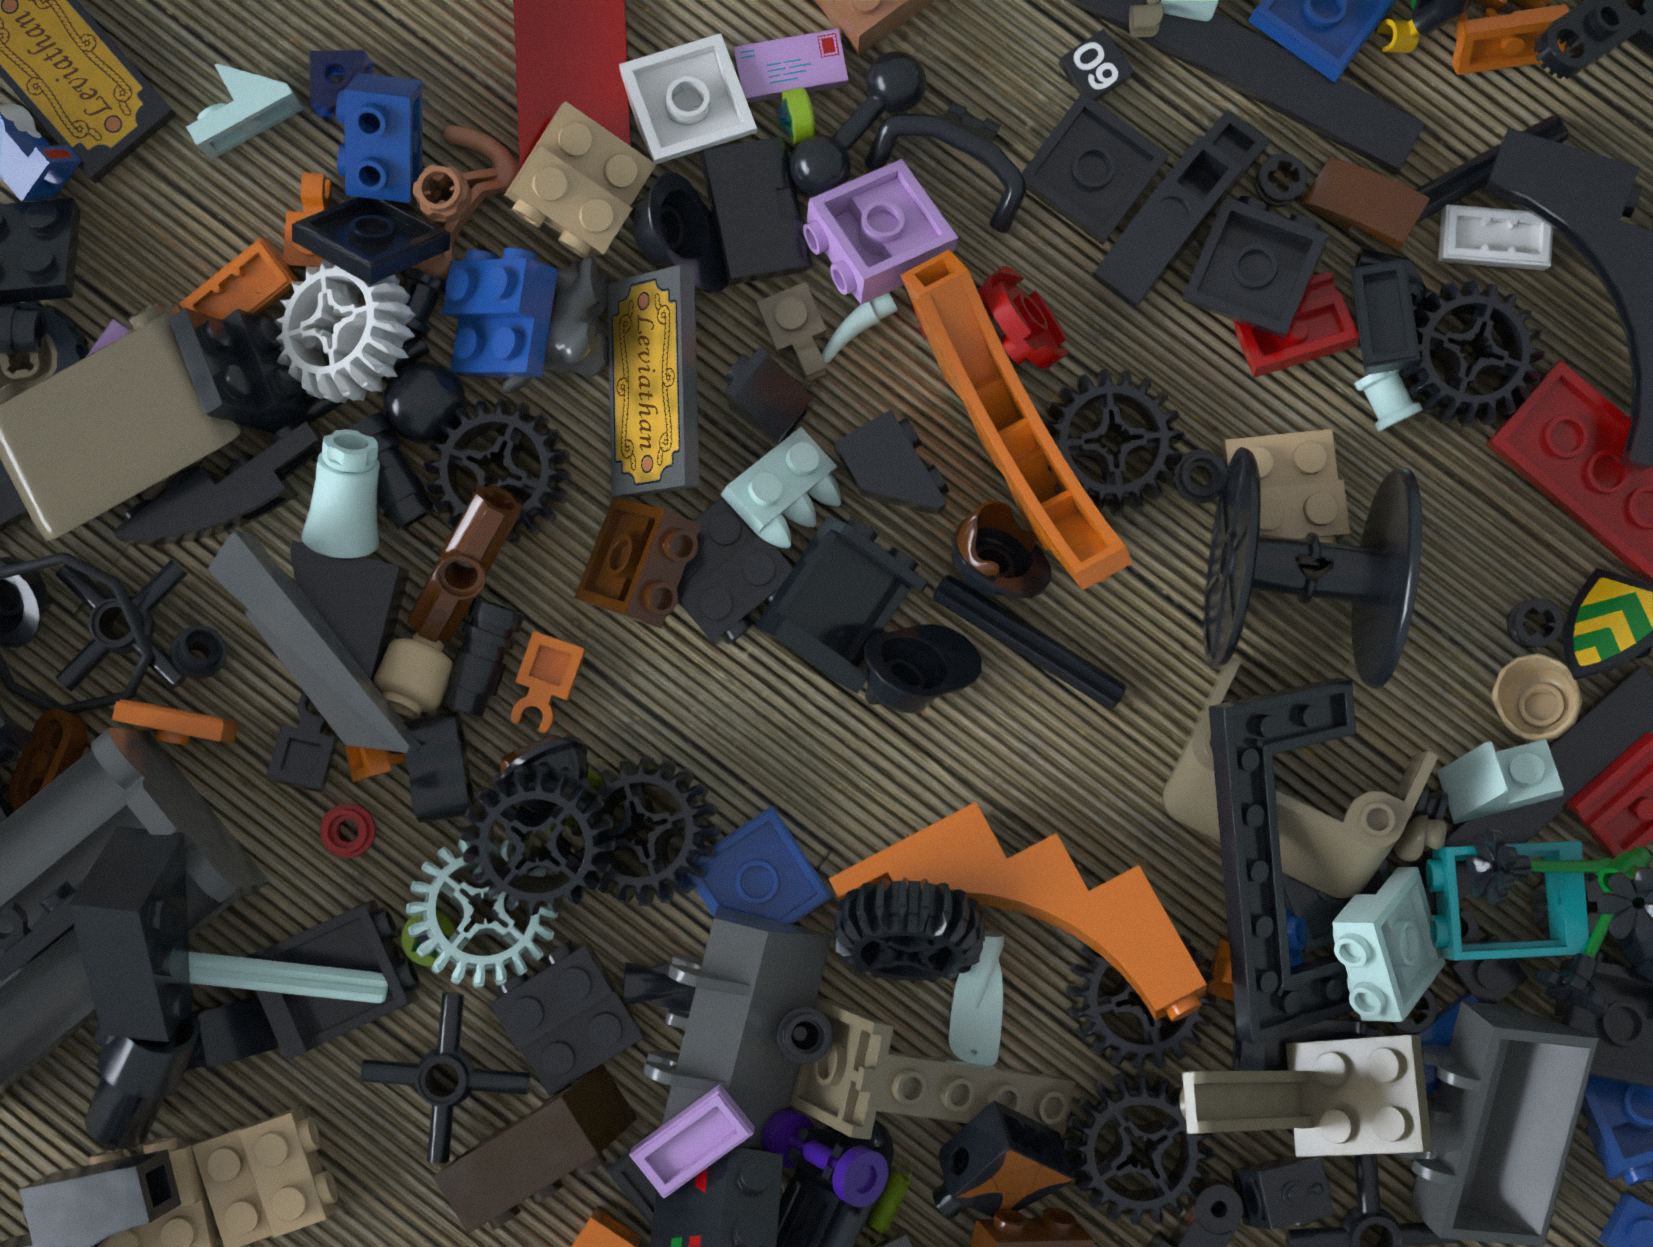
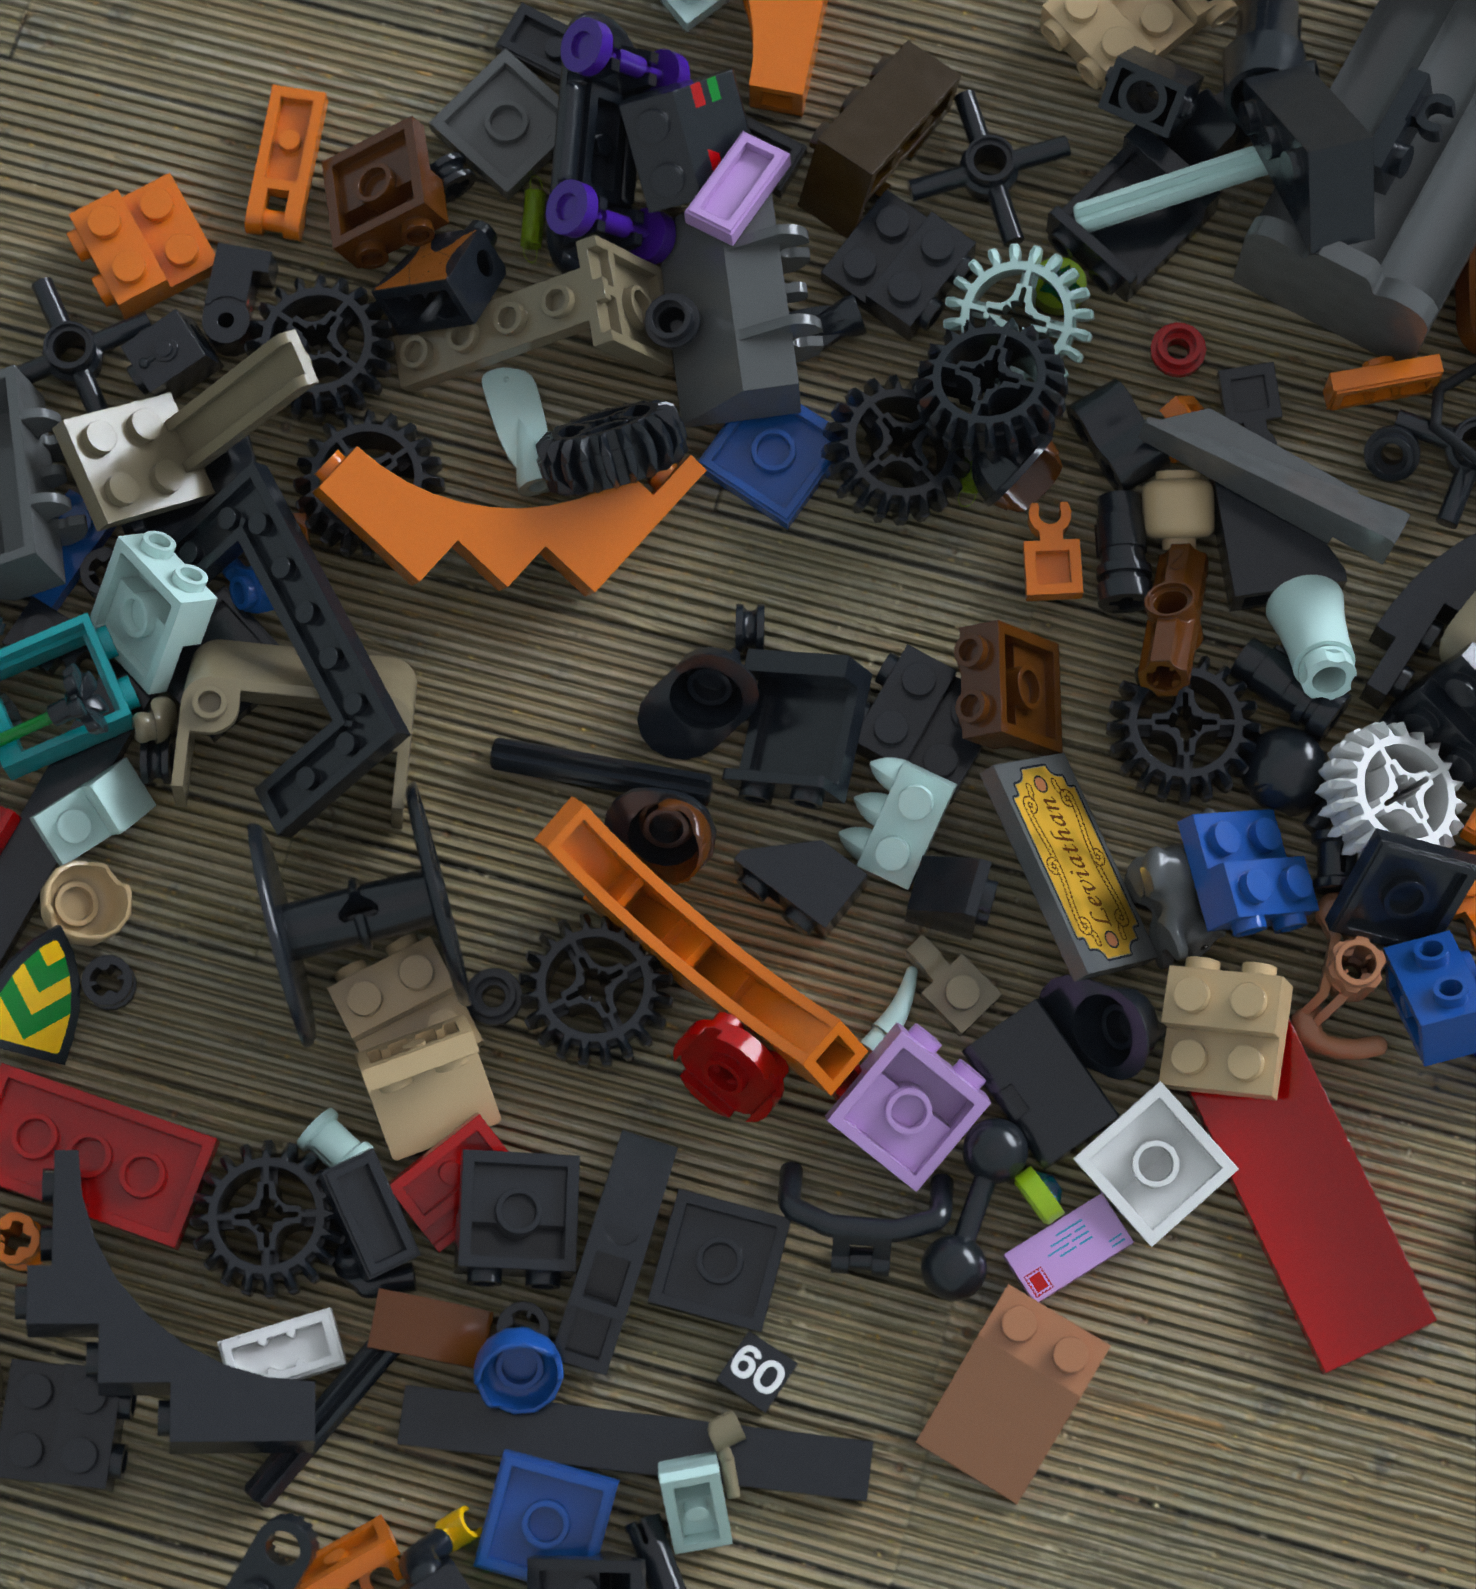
camera: 165 degrees right, 10 degrees down
(262, 1081) = (1133, 87): none -> black head
(846, 718) = (749, 628): none -> black bush
(1294, 413) = (427, 1085): none -> tan bracket
(1305, 133) = (518, 1371): none -> blue hair

